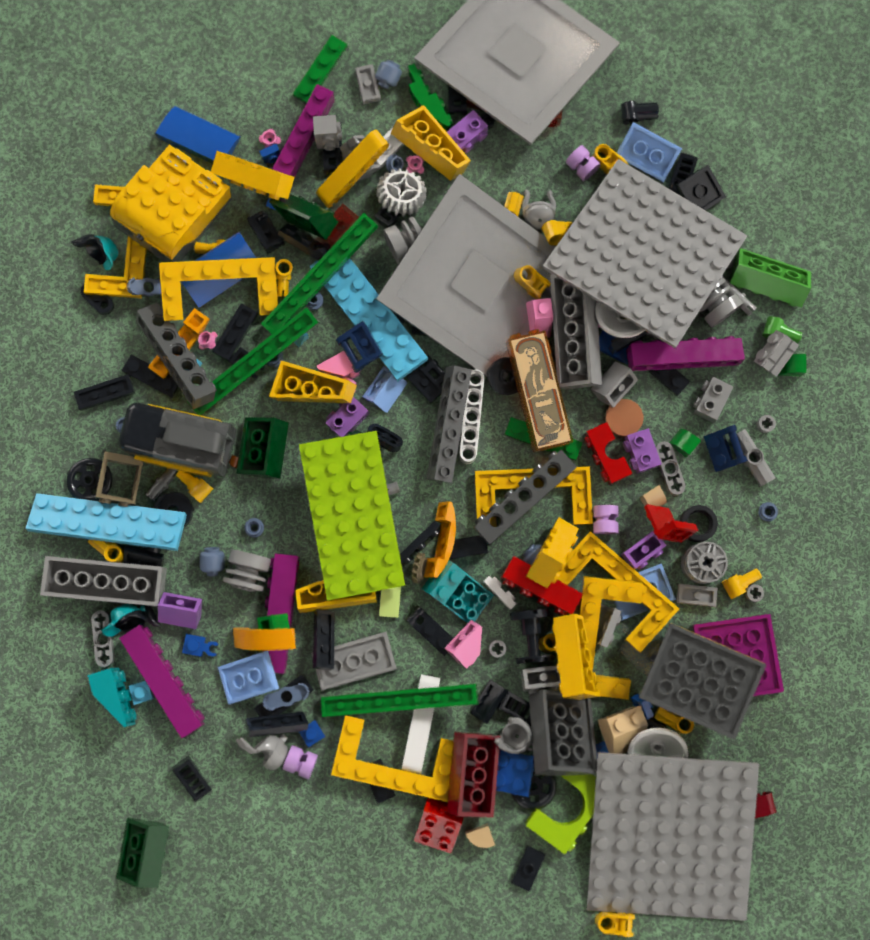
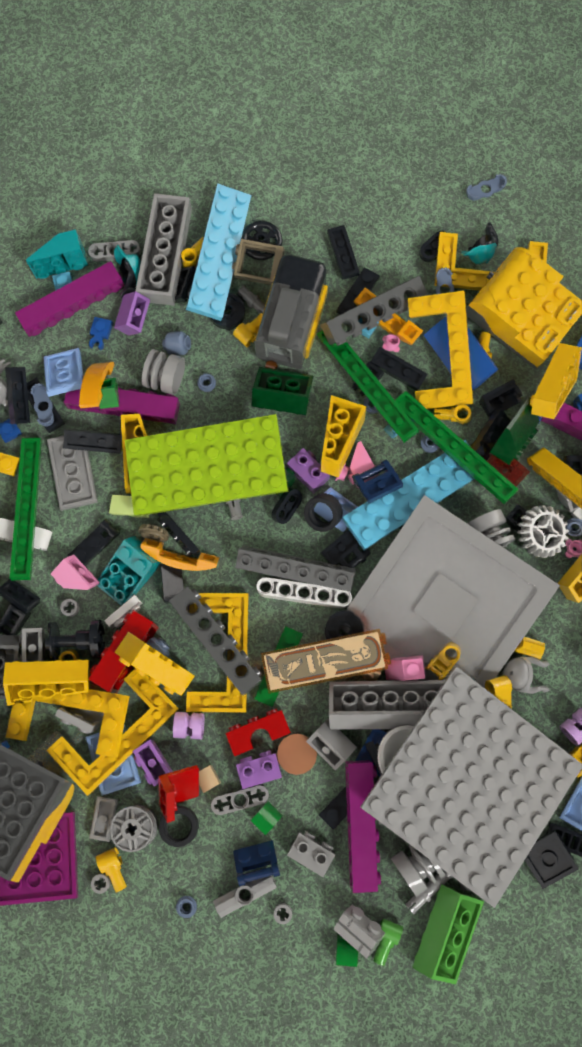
camera: 100 degrees right, 5 degrees down
(23, 237) = (496, 185): none -> sand blue piece
(403, 403) = (332, 503): none -> black tyre

